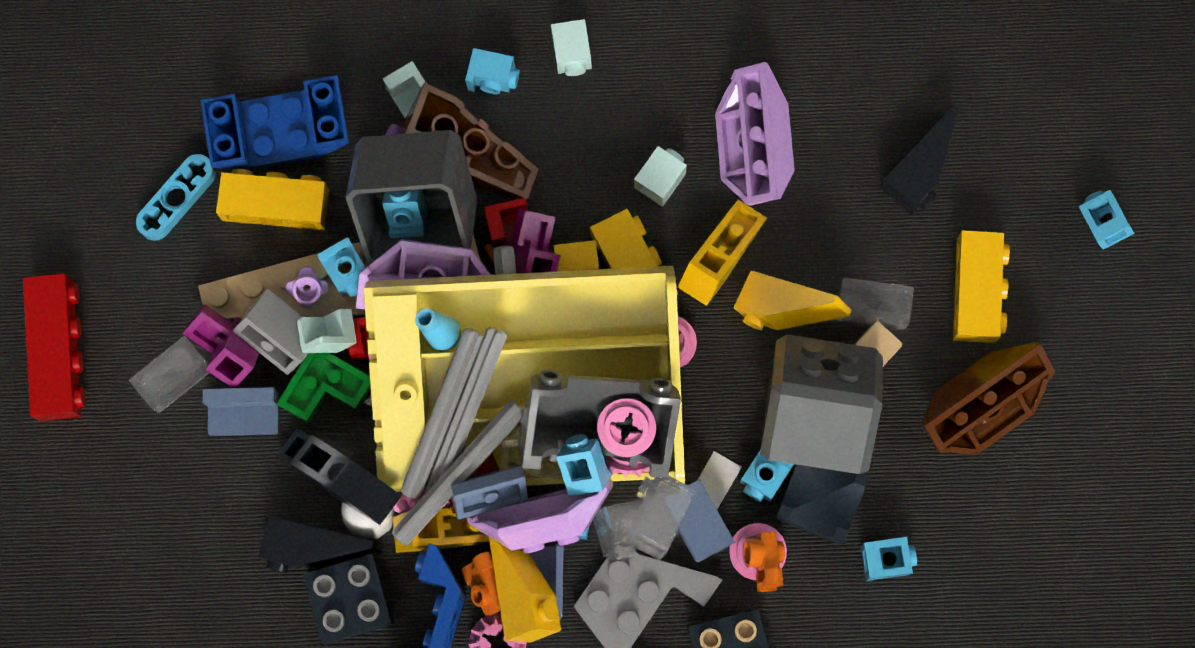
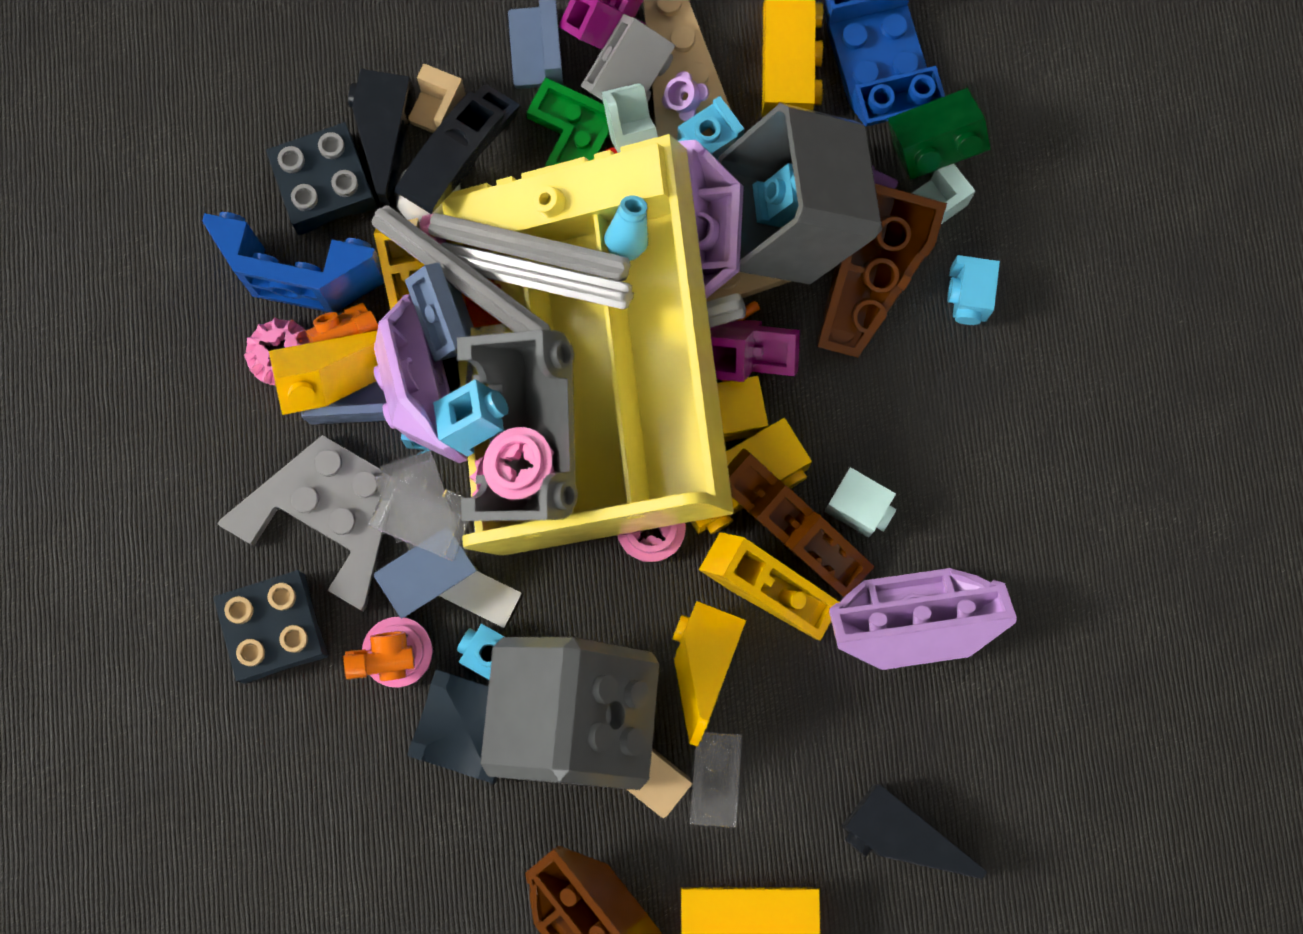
camera: 80 degrees right, 0 degrees up
(288, 498) = (437, 97): none -> tan panel
(363, 84) = (939, 133): none -> dark green brick
(502, 220) = (789, 313): red panel -> none
(571, 47) = (1015, 383): light aqua brick -> none
(677, 224) = (796, 524): none -> reddish brown slope
(873, 553) = (379, 802): medium azure brick -> none

